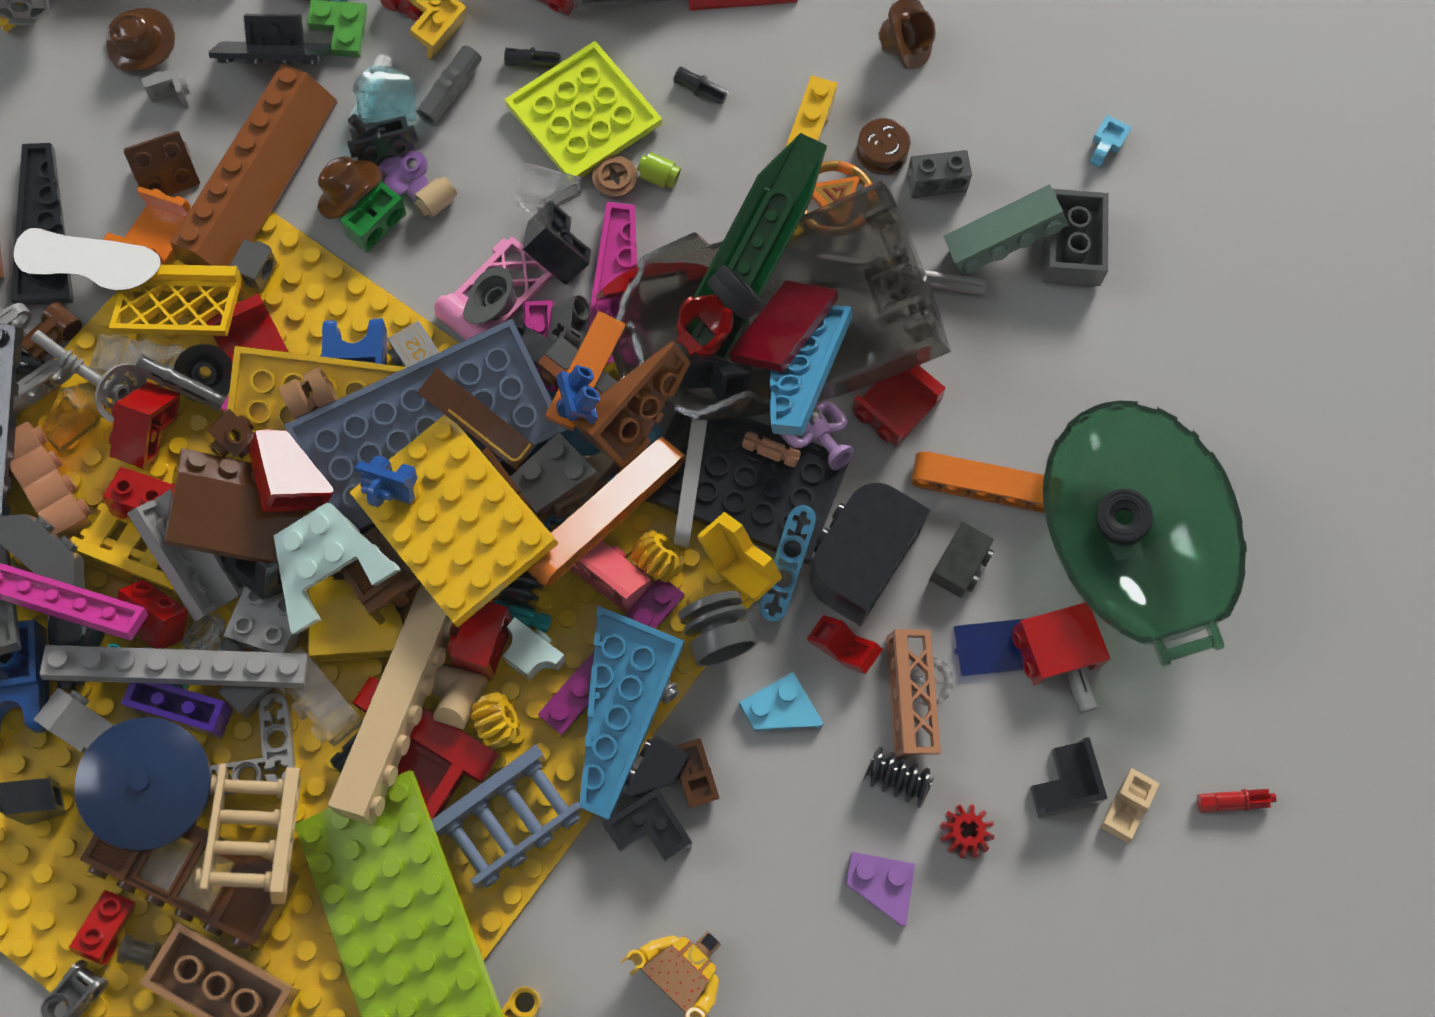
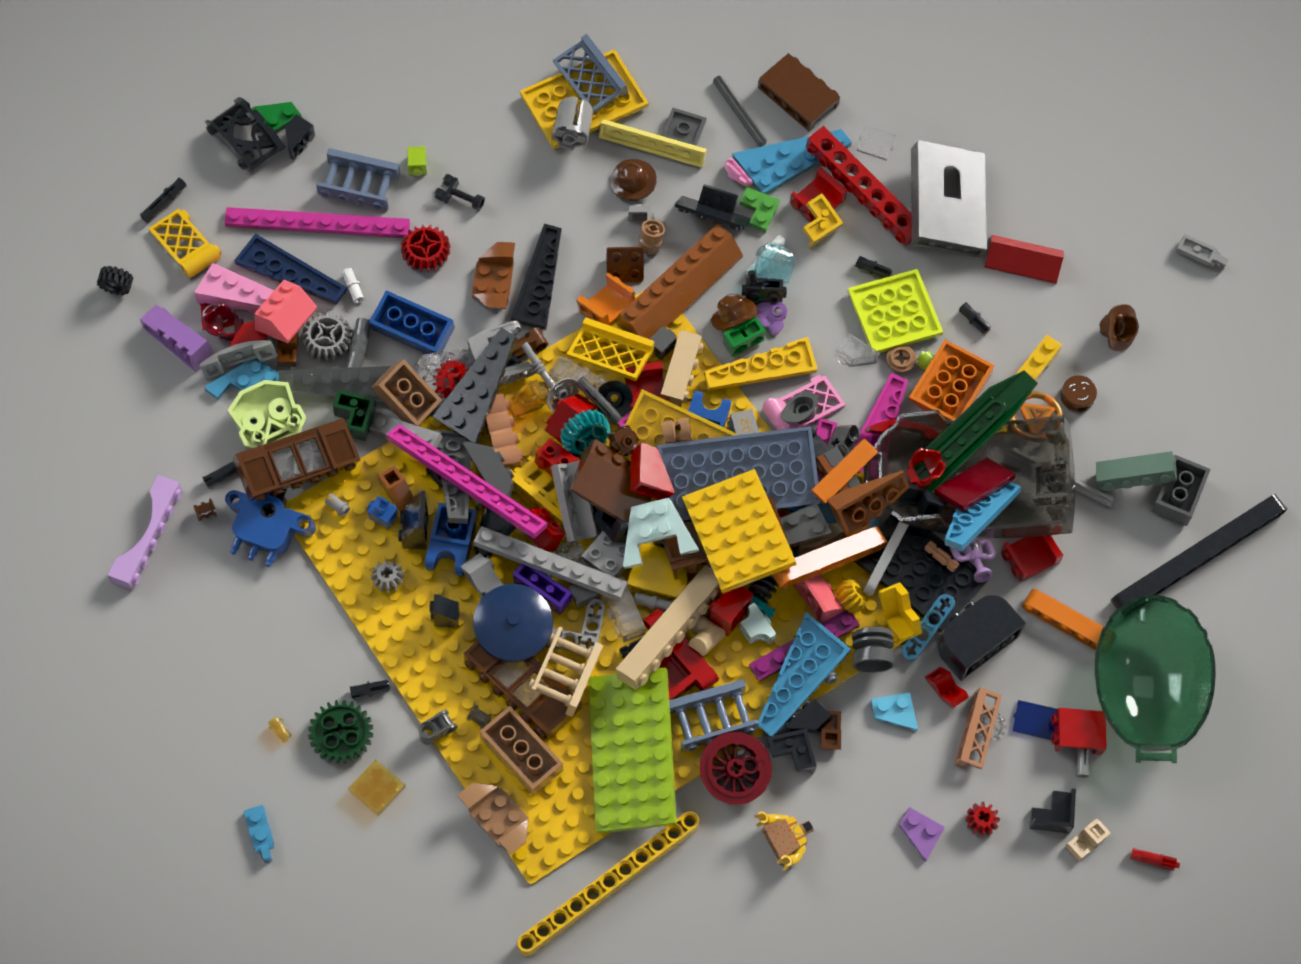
camera: 20 degrees right, 5 degrees down
(100, 931) = (461, 698): red plate -> none
(102, 261) = (575, 313): white sticker -> none
(163, 436) = (583, 430): none -> teal gear
(189, 113) = (651, 236): none -> medium nougat wheel
(293, 294) = (681, 366): none -> tan brick
(356, 669) = (652, 602): none -> light grey pin
(384, 484) = (705, 496): blue hips -> none
(434, 197) = (784, 335): tan brick -> none
(436, 241) = (778, 363): none -> yellow wing
(449, 85) = (816, 268): dark grey axle -> none
(475, 418) = (770, 478): reddish brown slope -> none
(495, 720) = (723, 657): yellow gear -> none
(553, 245) = (849, 388): black panel -> none
(577, 396) = (835, 484): blue hips -> none
(609, 870) = (759, 758): none -> dark red piece
(698, 185) = (951, 381): none -> orange slope
(734, 292) = (950, 453): black tyre -> none
(899, 776) = (952, 774): black piece -> none
(939, 173) = (1108, 422): dark grey brick -> none
(961, 560) = (1036, 662): pearl dark grey brick -> none
(1109, 137) = (1227, 434): medium azure plate -> none
(1124, 500) = (1146, 680): black tyre -> none
(1133, 321) = (1203, 551): none -> black beam

